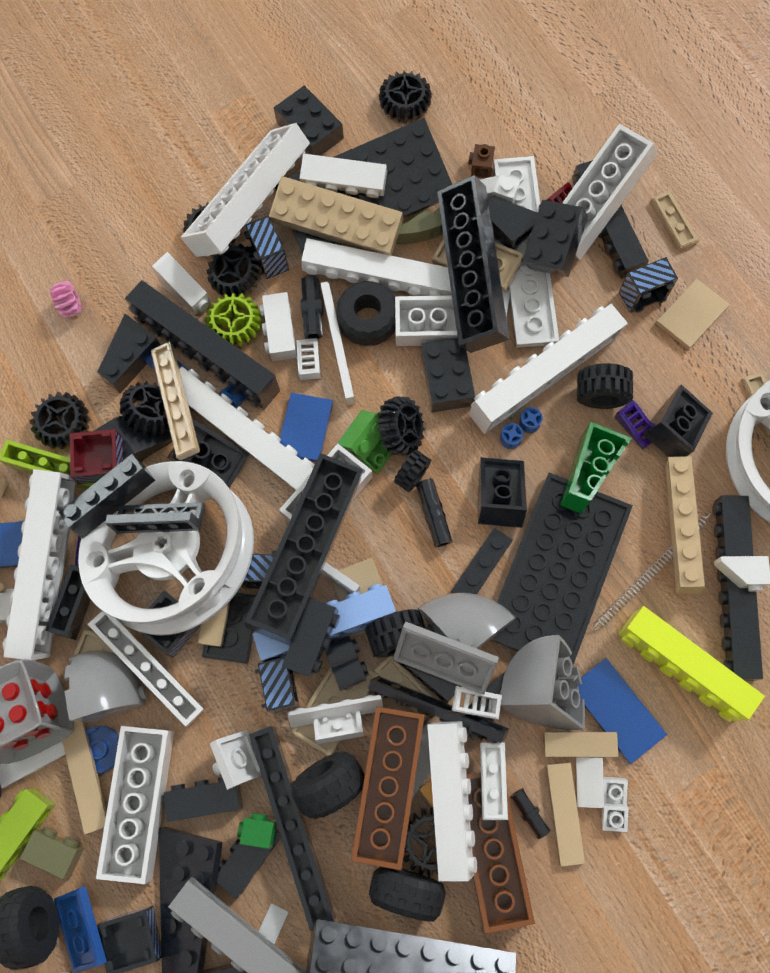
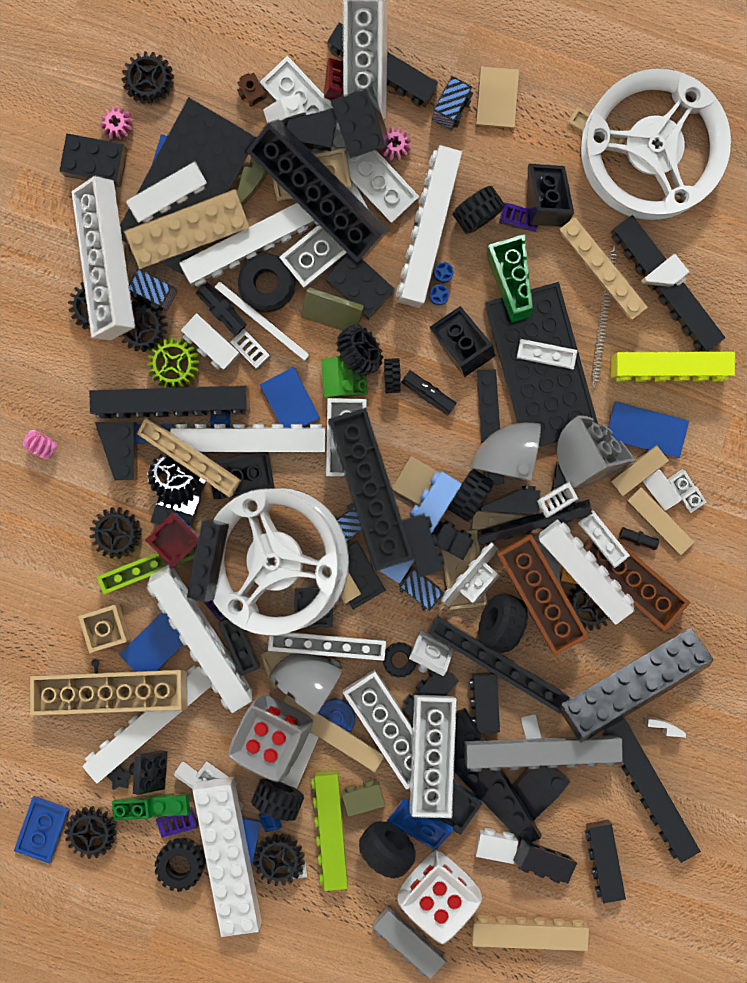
camera: 35 degrees left, 15 degrees up
(144, 865) = (432, 756): none -> white brick
(159, 521) = (259, 552): black fence -> none
(181, 284) = (115, 367): white slope -> none
(189, 737) = (388, 665): none -> black tyre
(257, 831) = (481, 684): green brick -> none
(340, 579) = (406, 488): white tile -> none
(351, 110) = (123, 126): none -> bright pink gear
(404, 373) = (331, 310): none -> olive tile
(407, 893) = (602, 646): black tyre -> none
(445, 658) = (518, 490): light grey tile -> none
(572, 561) = (546, 354): none -> white tile
(576, 291) = (402, 144): none -> bright pink gear
(674, 221) = (430, 28): tan tile -> none

